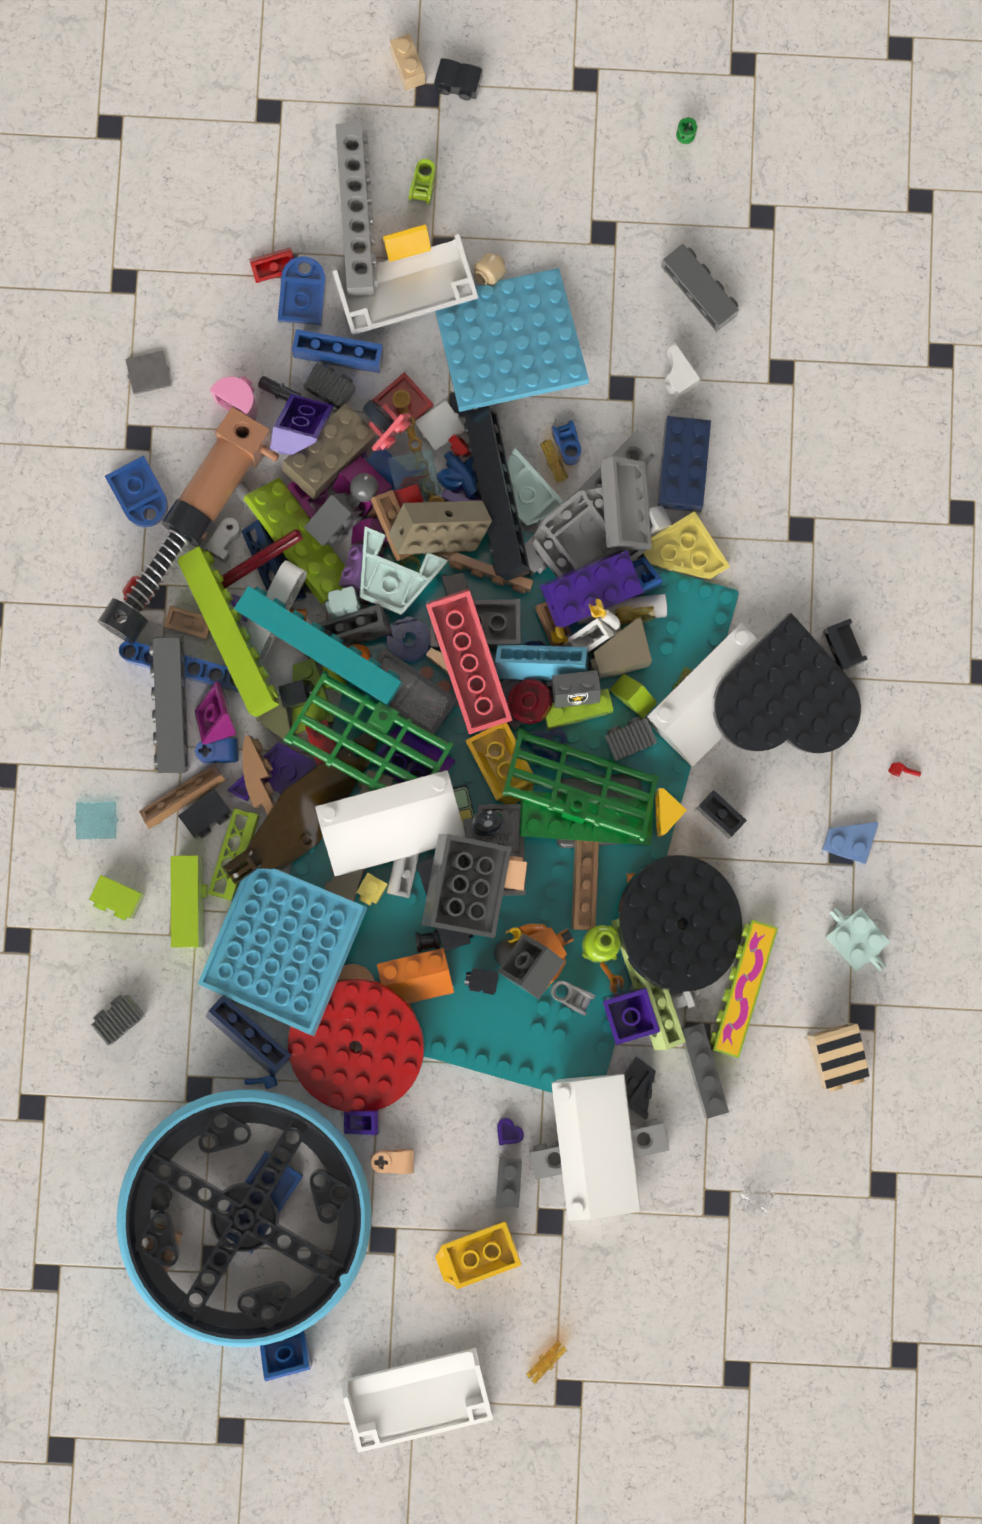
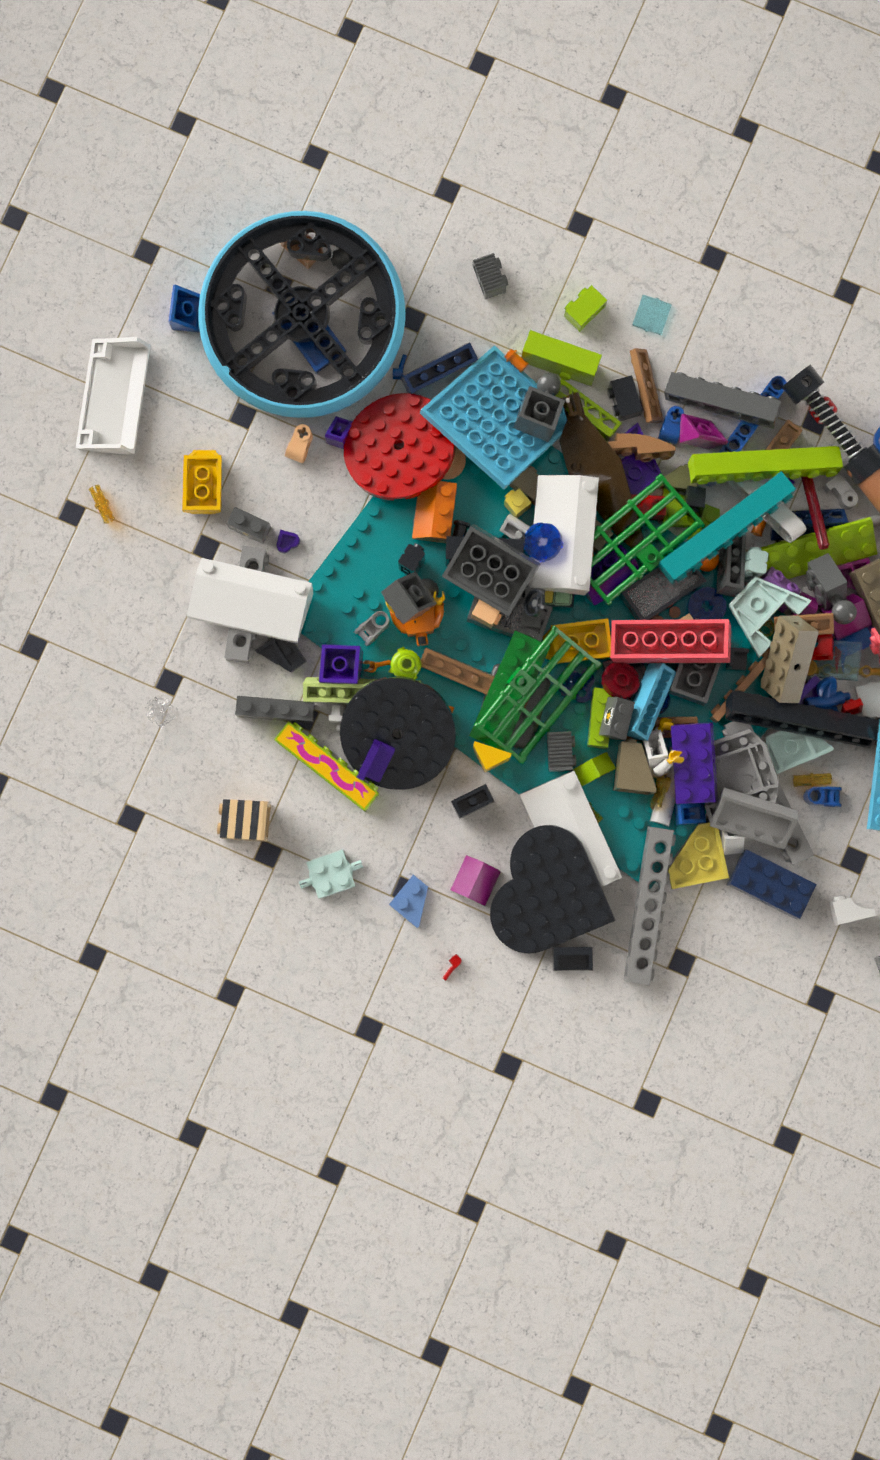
camera: 115 degrees right, 0 degrees up
(207, 951) = (516, 360): none -> orange pin
(259, 901) = (541, 408): none -> dark grey brick
(398, 843) = (544, 531): none -> clear blue plate
(720, 935) = (376, 761): none -> dark purple panel
(802, 780) = (475, 880): none -> magenta slope
(832, 563) = (638, 933): none -> light grey brick

